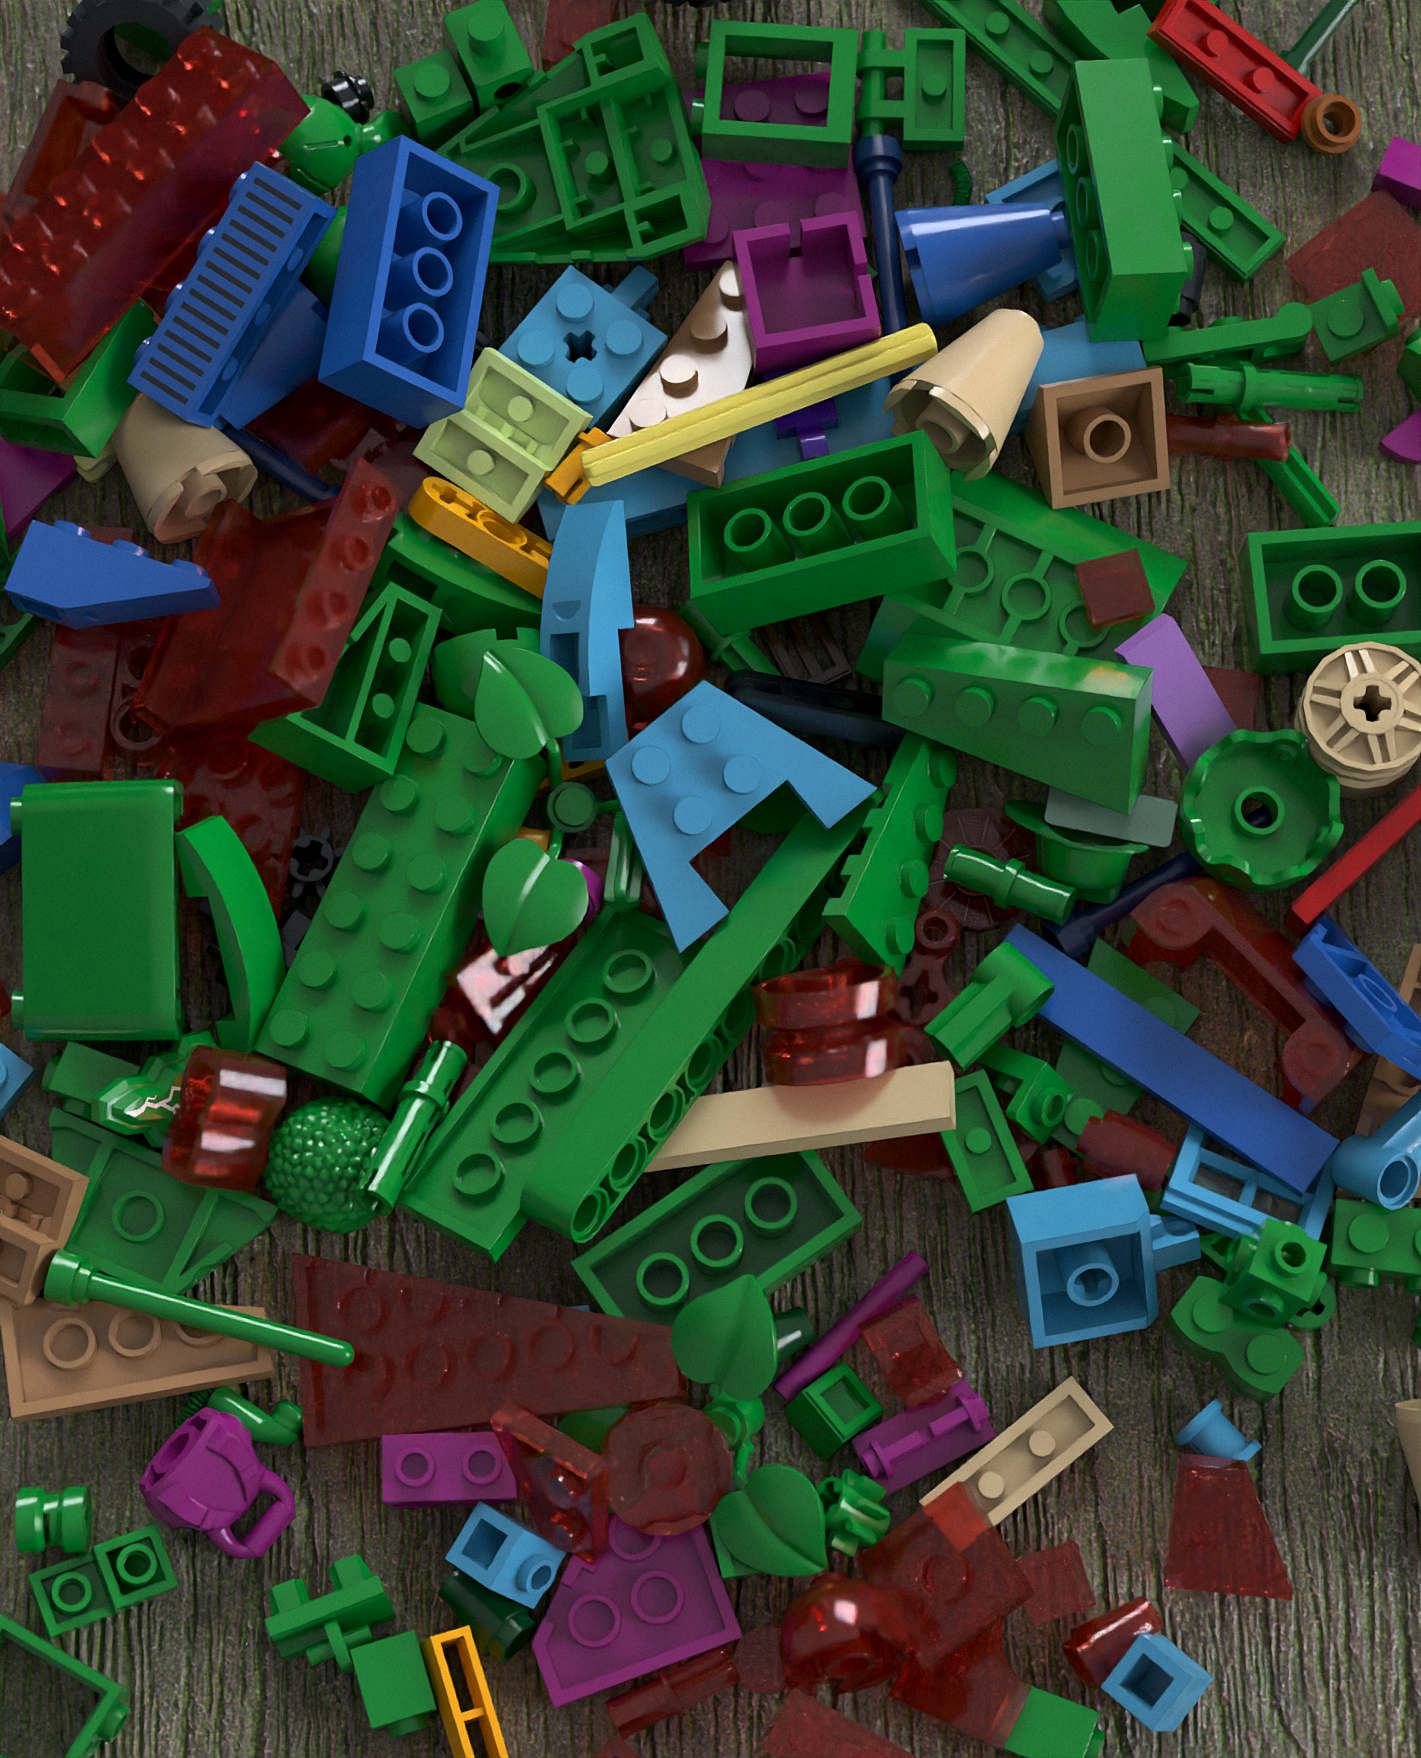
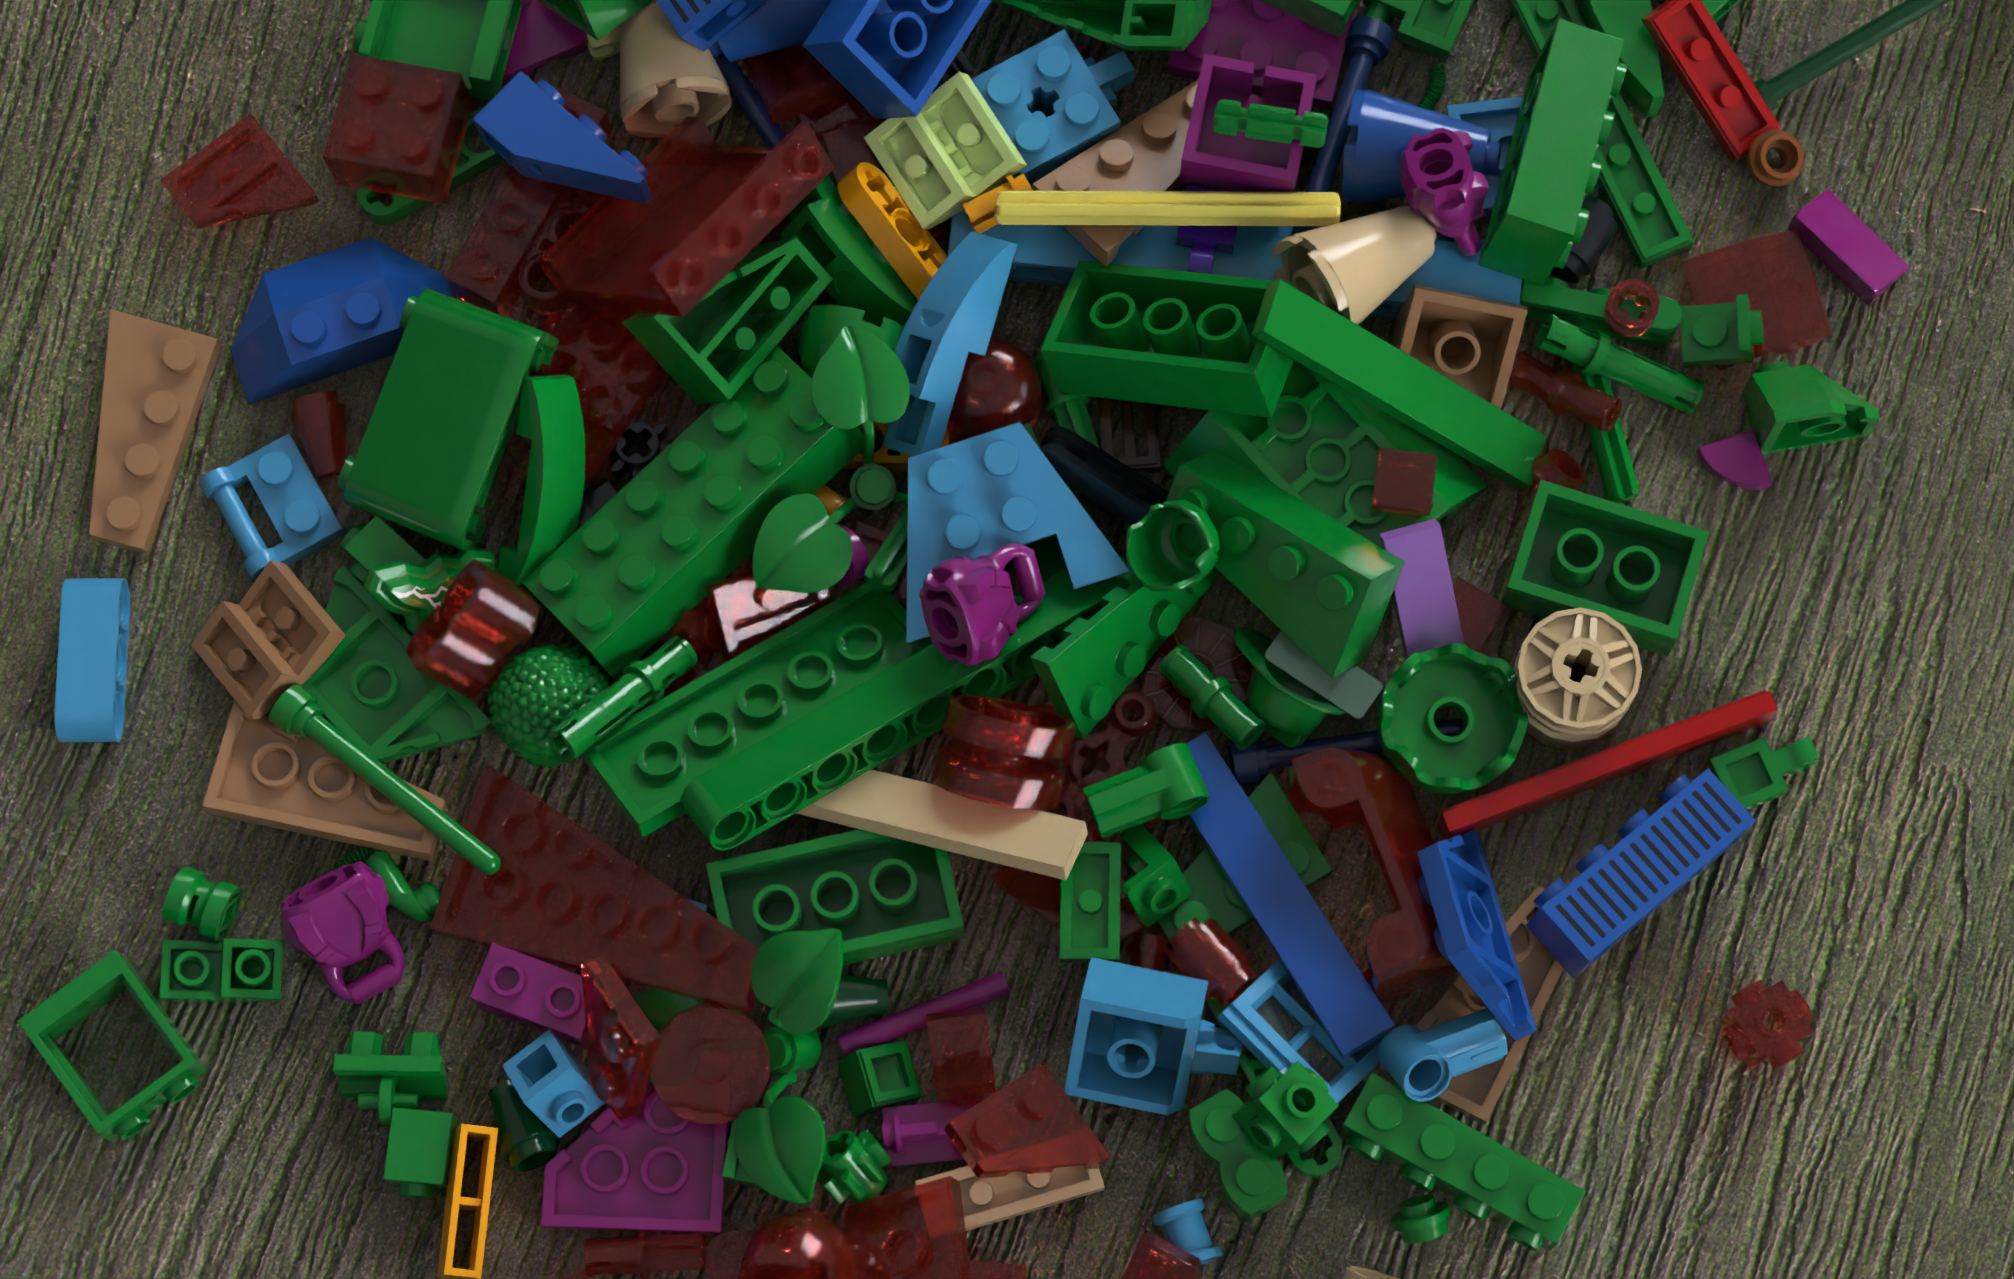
camera: 25 degrees right, 0 degrees up
(736, 886) = (973, 605): none -> magenta piece
(832, 276) = (1270, 123): none -> green axle
(913, 745) = (1172, 546): none -> green hair
(1013, 1402) = (1025, 1129): none -> clear red wing
(1031, 272) = (1444, 186): none -> magenta piece
(1066, 492) = (1397, 384): none -> green tile
(1251, 517) = (1558, 469): none -> clear red plate
(1267, 308) = (1619, 319): none -> clear red bush

